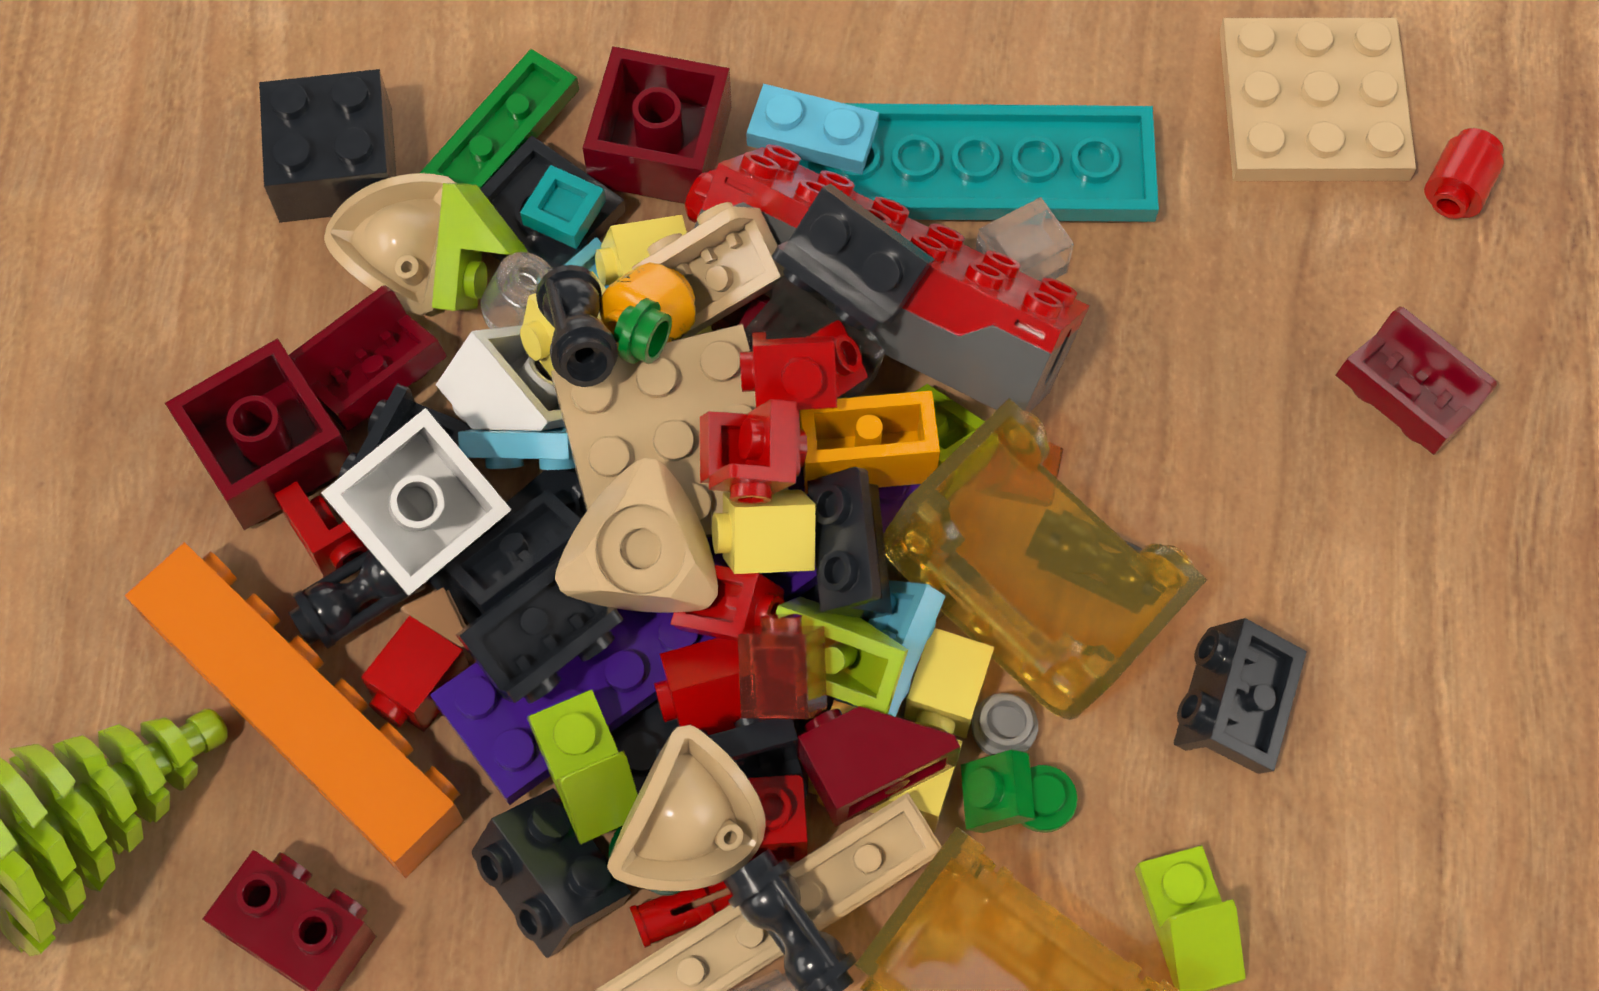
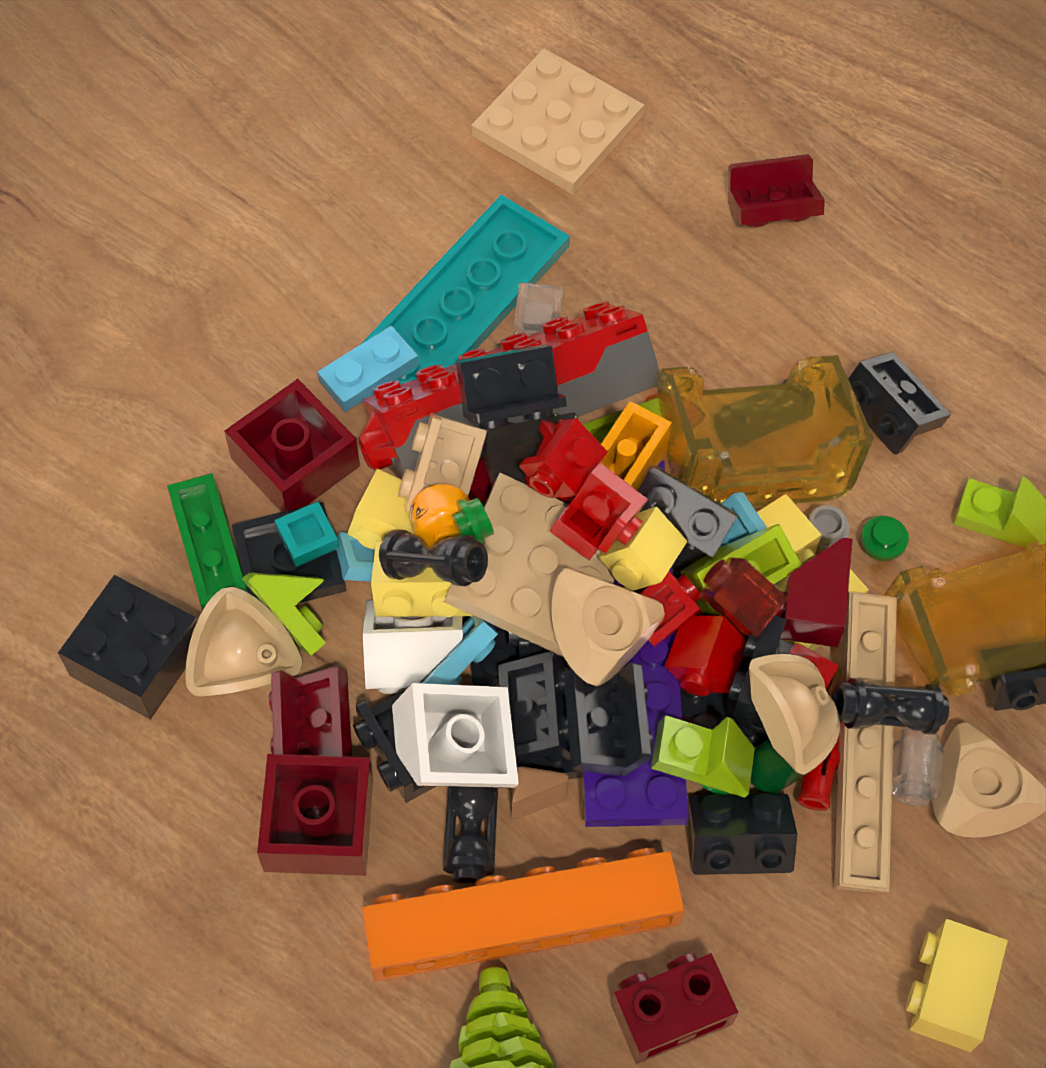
camera: 55 degrees left, 5 degrees down
(318, 530) = (405, 828): red bracket -> none
(409, 671) = (556, 827): red brick -> none
(508, 290) = (343, 601): clear brick -> none
(997, 791) = (870, 555): green plate -> none
(1465, 174) = (668, 85): red brick -> none

